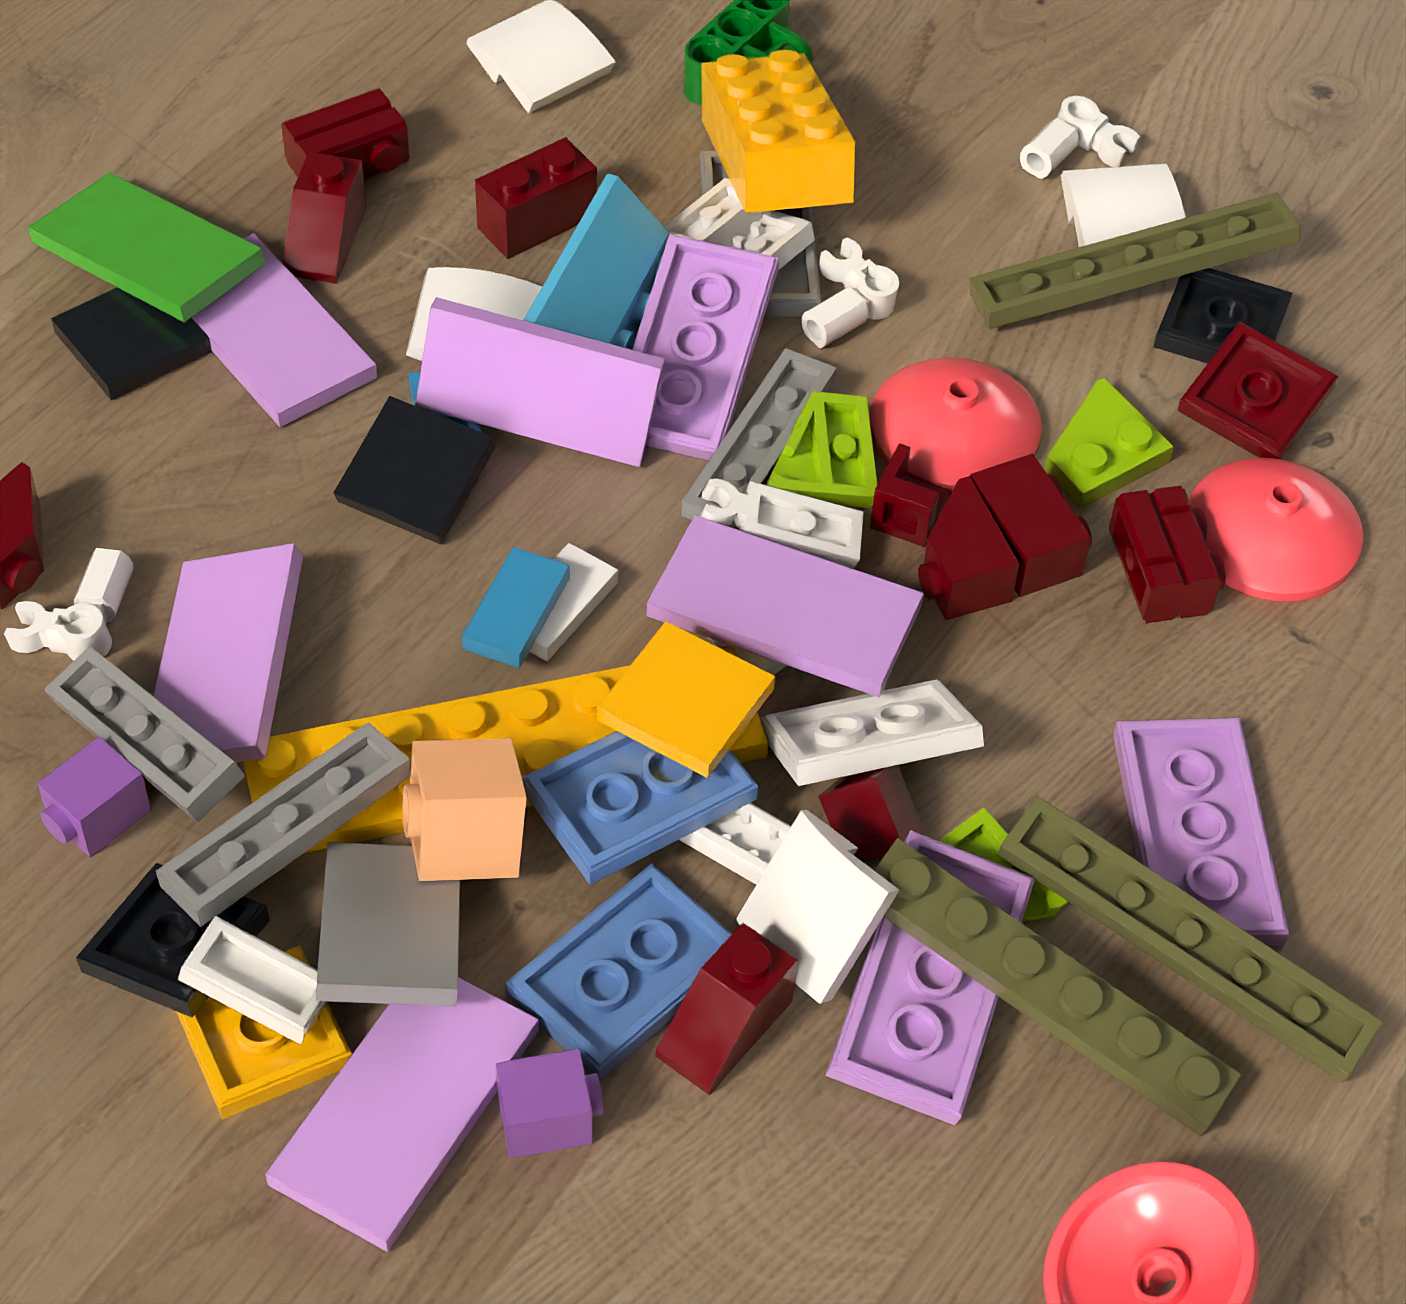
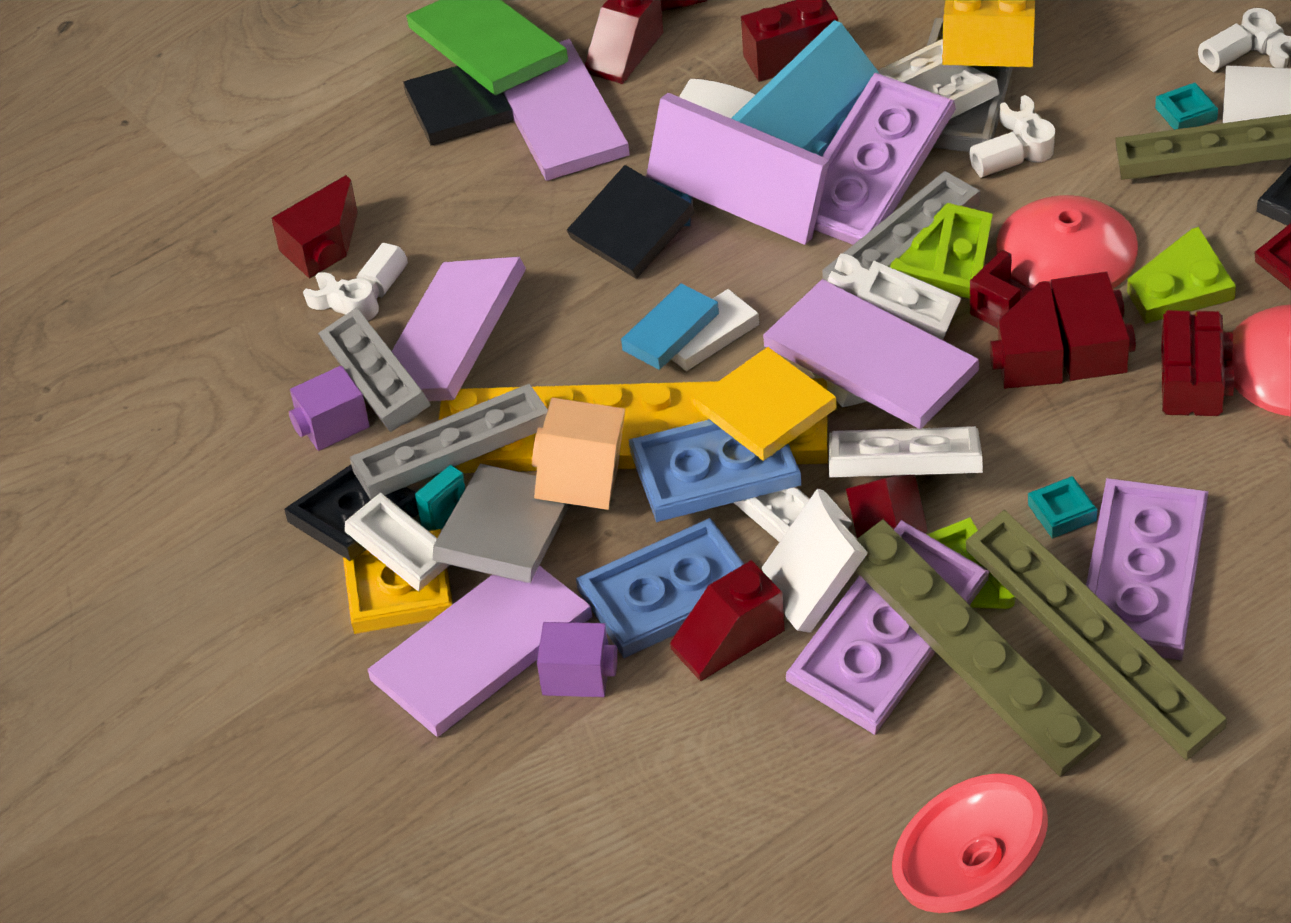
camera: 25 degrees right, 5 degrees down
(291, 903) = (440, 498): none -> teal tile
(1030, 228) = (1186, 107): none -> teal tile
(1074, 768) = (1062, 507): none -> teal tile

